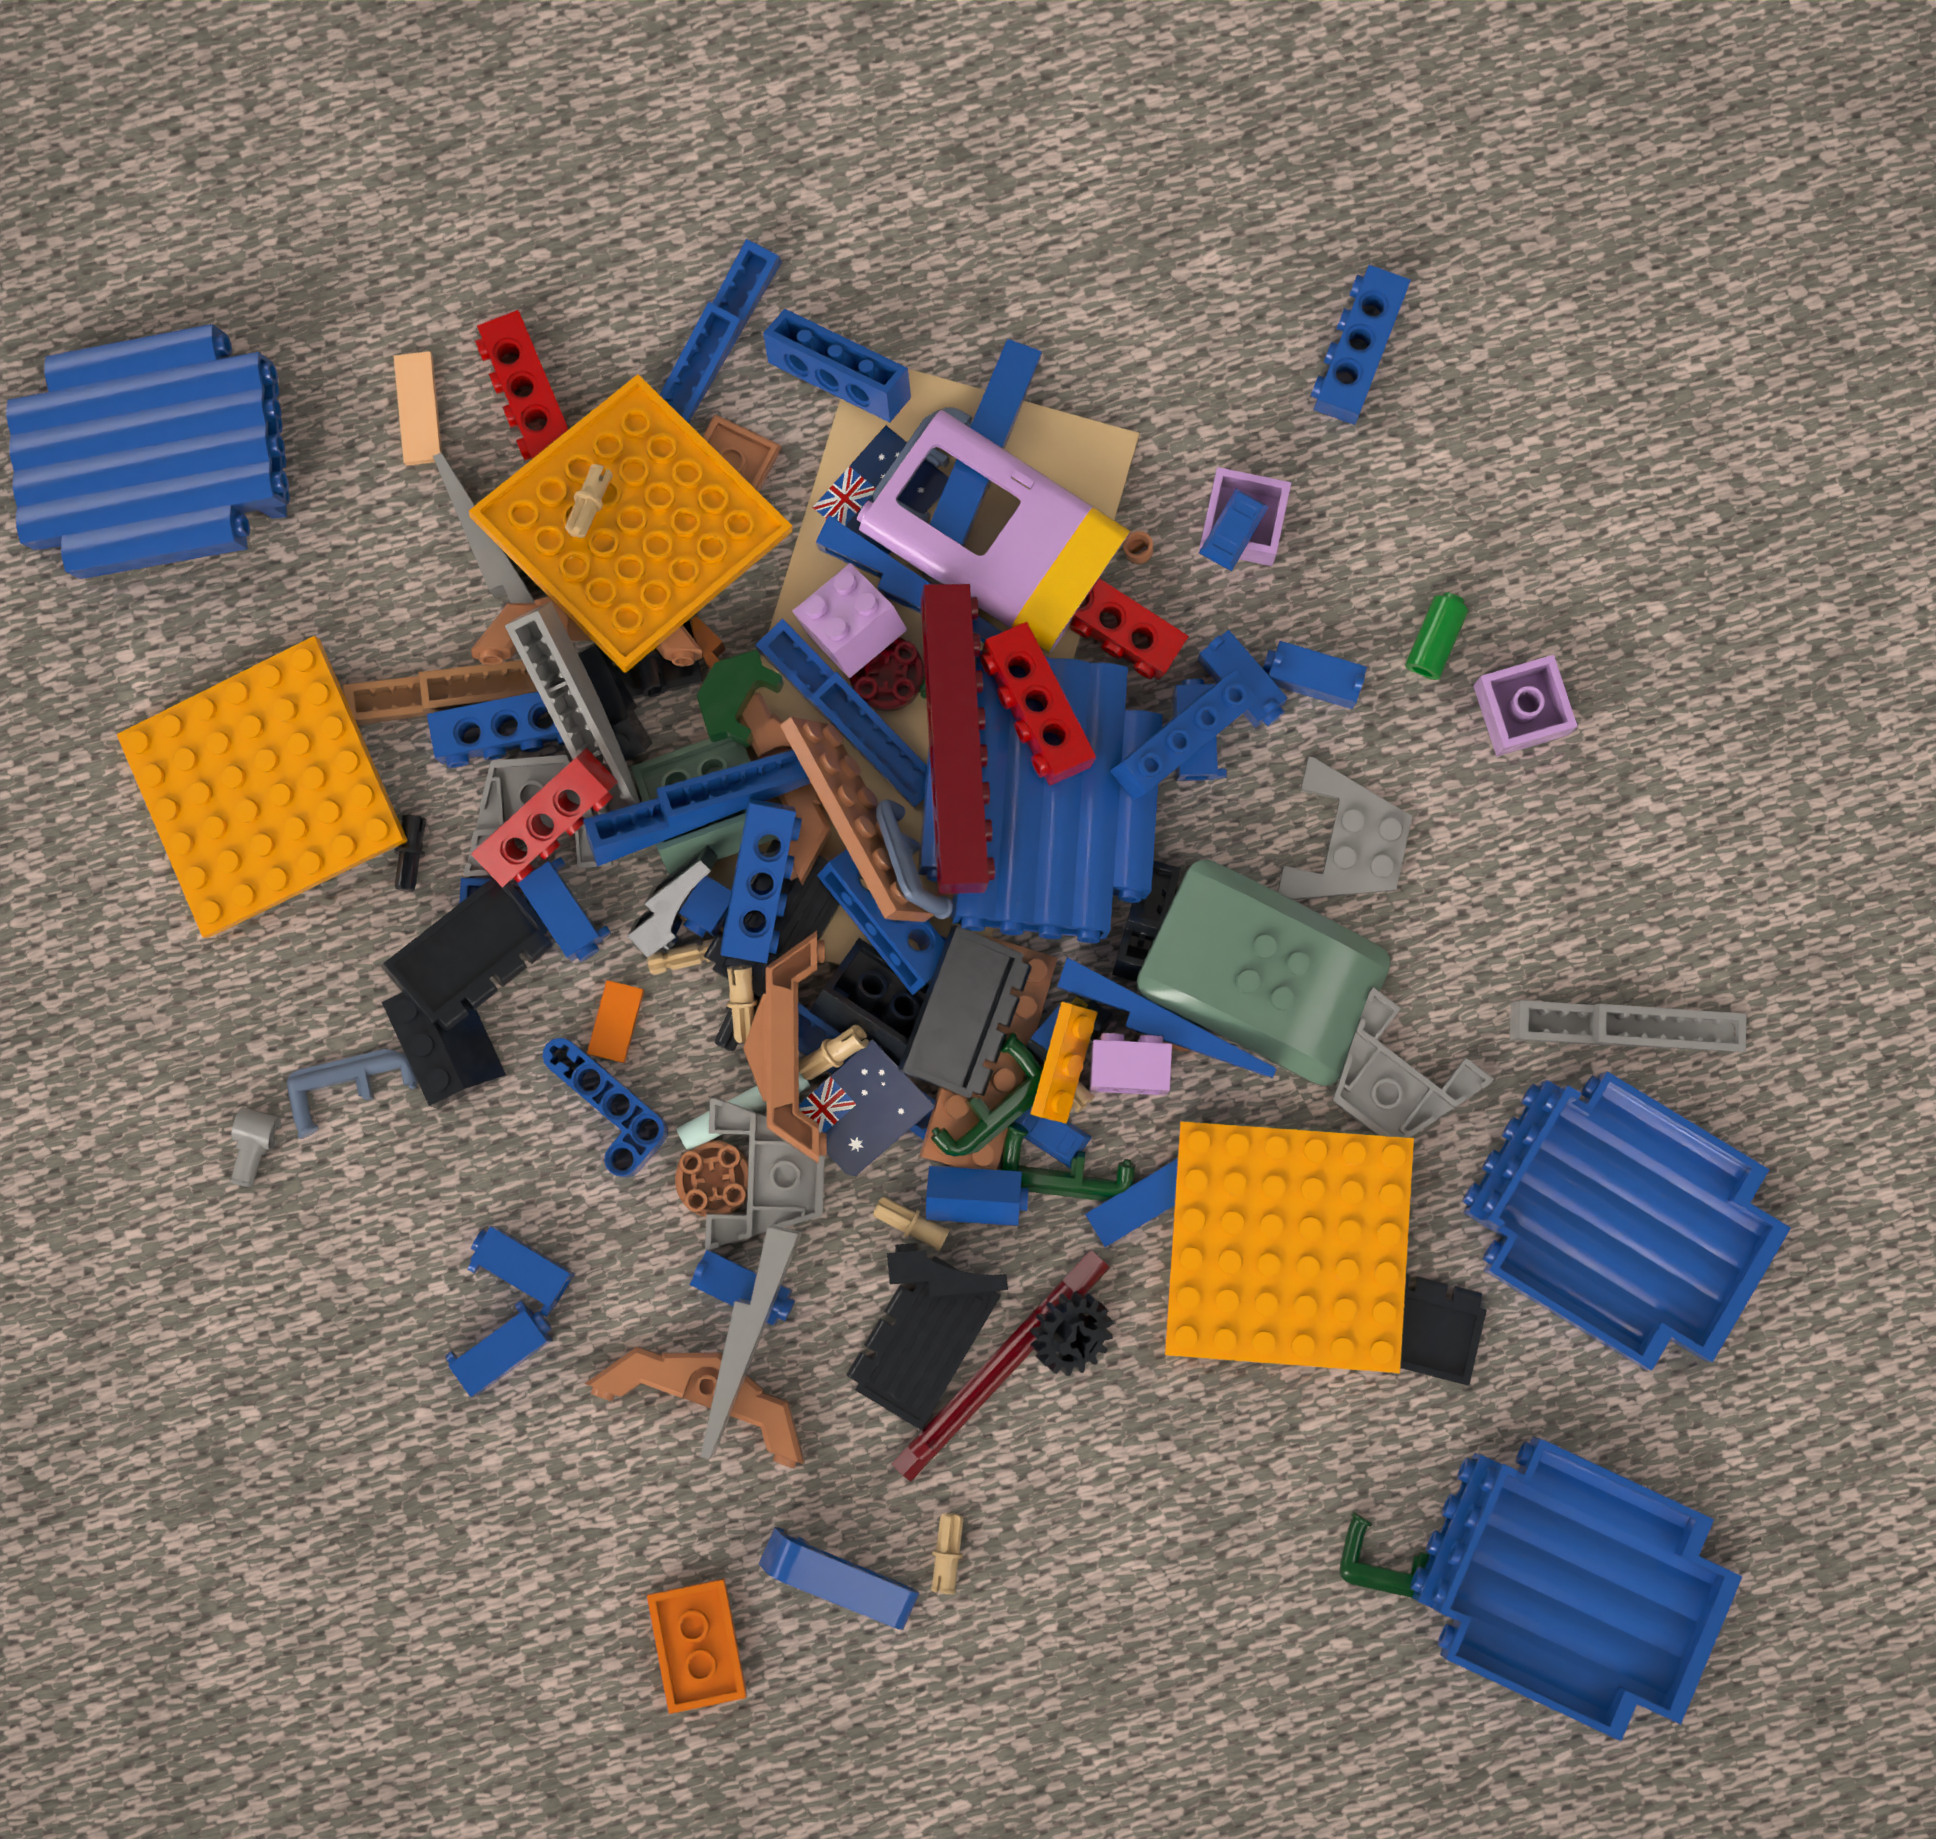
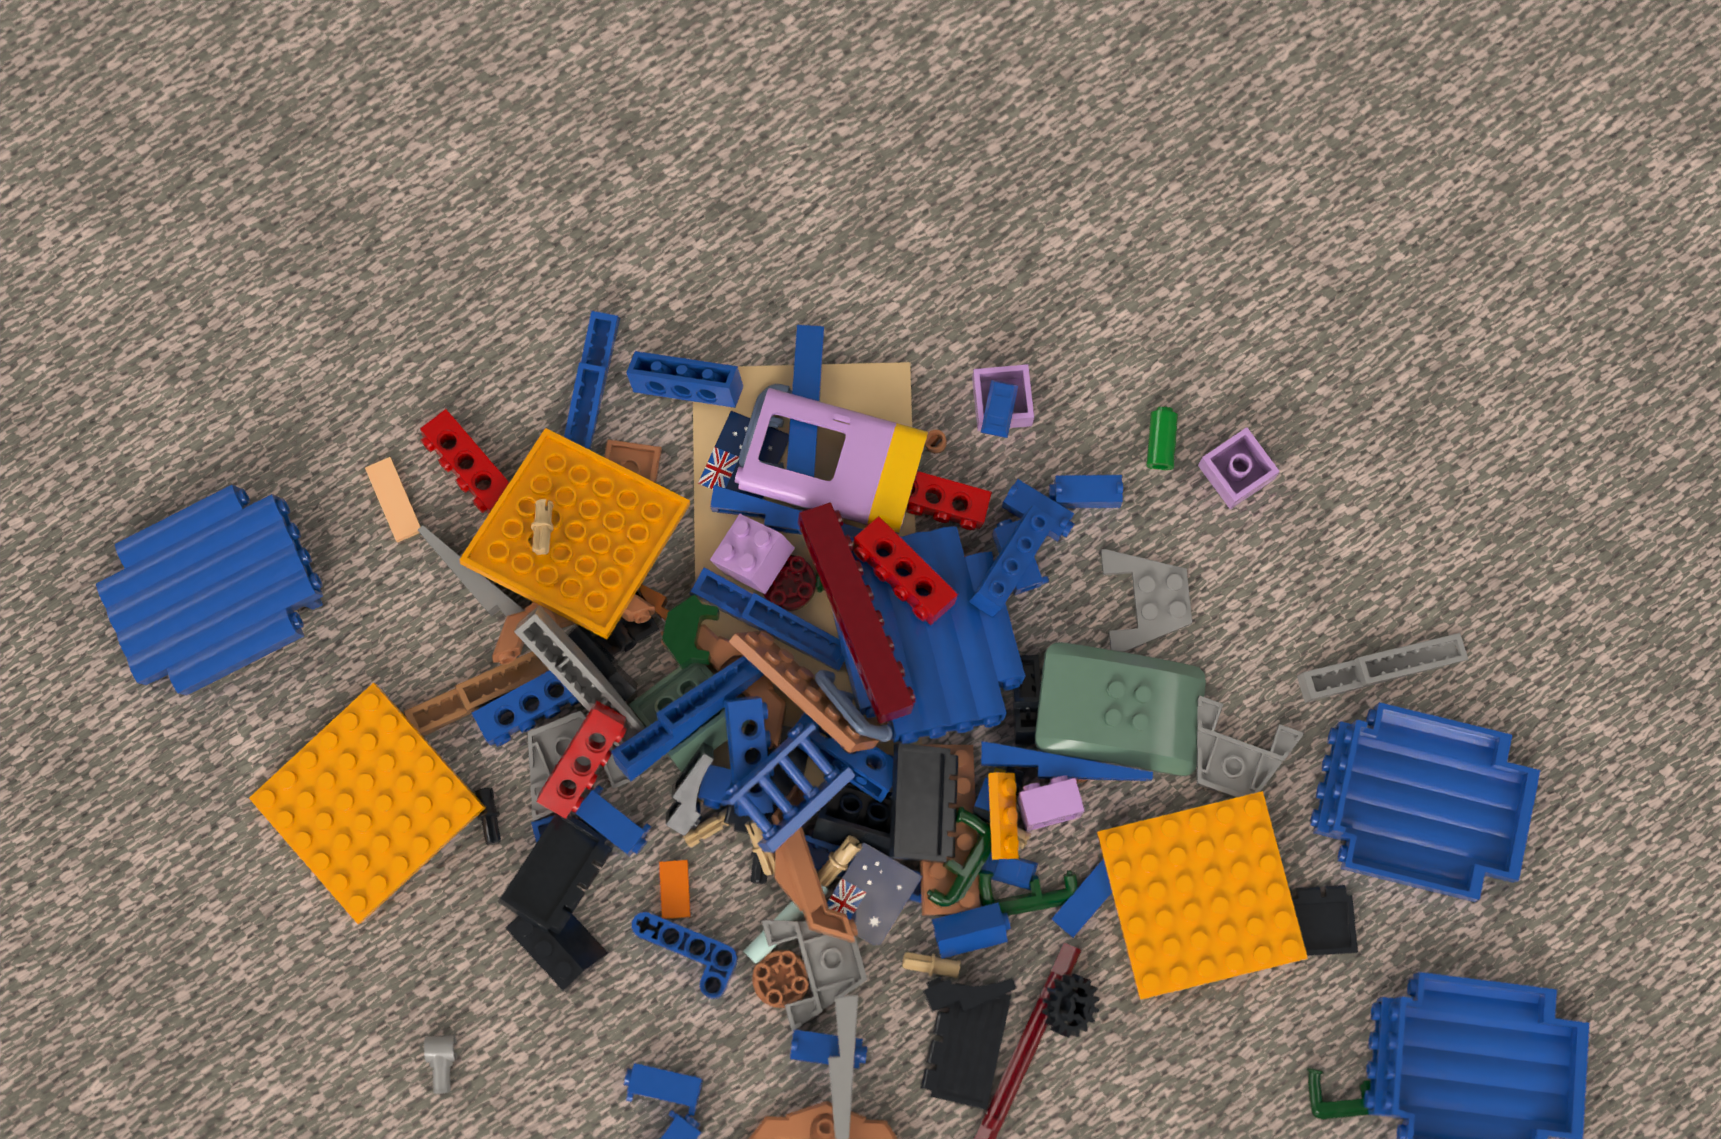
camera: 25 degrees left, 5 degrees down
(338, 1072) = (490, 987): sand blue piece -> none
(824, 960) = (813, 796): none -> blue fence
(1384, 292) = (1050, 215): blue brick -> none

